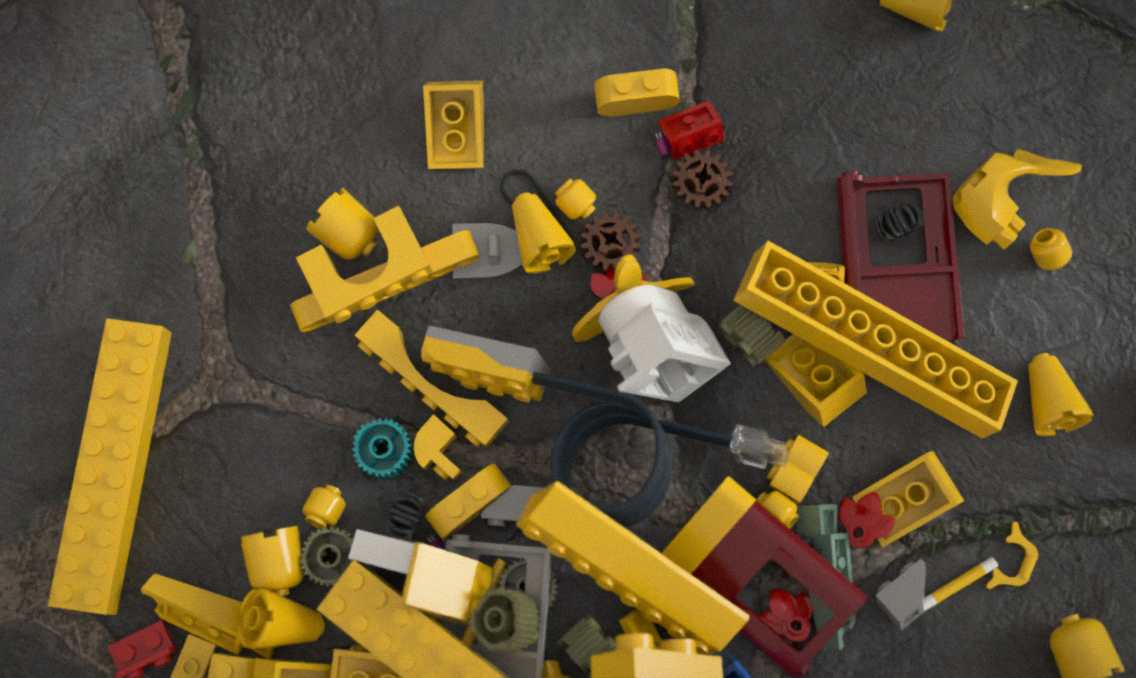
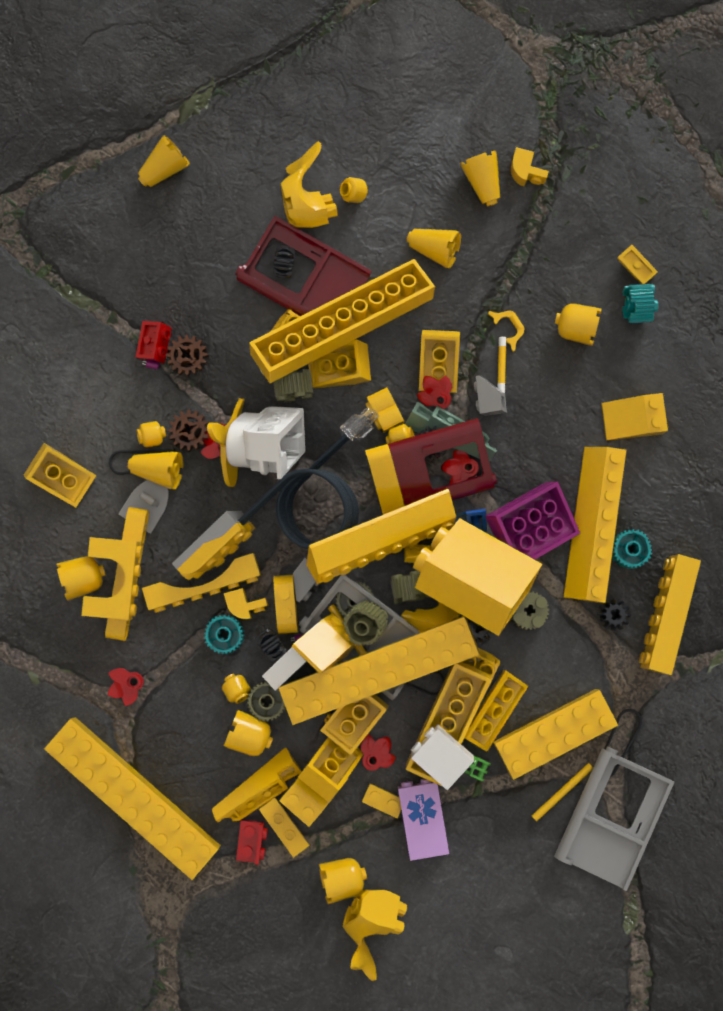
camera: 60 degrees left, 5 degrees up
(244, 365) = (123, 687): none -> red plate
(276, 621) = (283, 753): yellow cone -> none
(636, 92) = (111, 359): yellow brick -> none

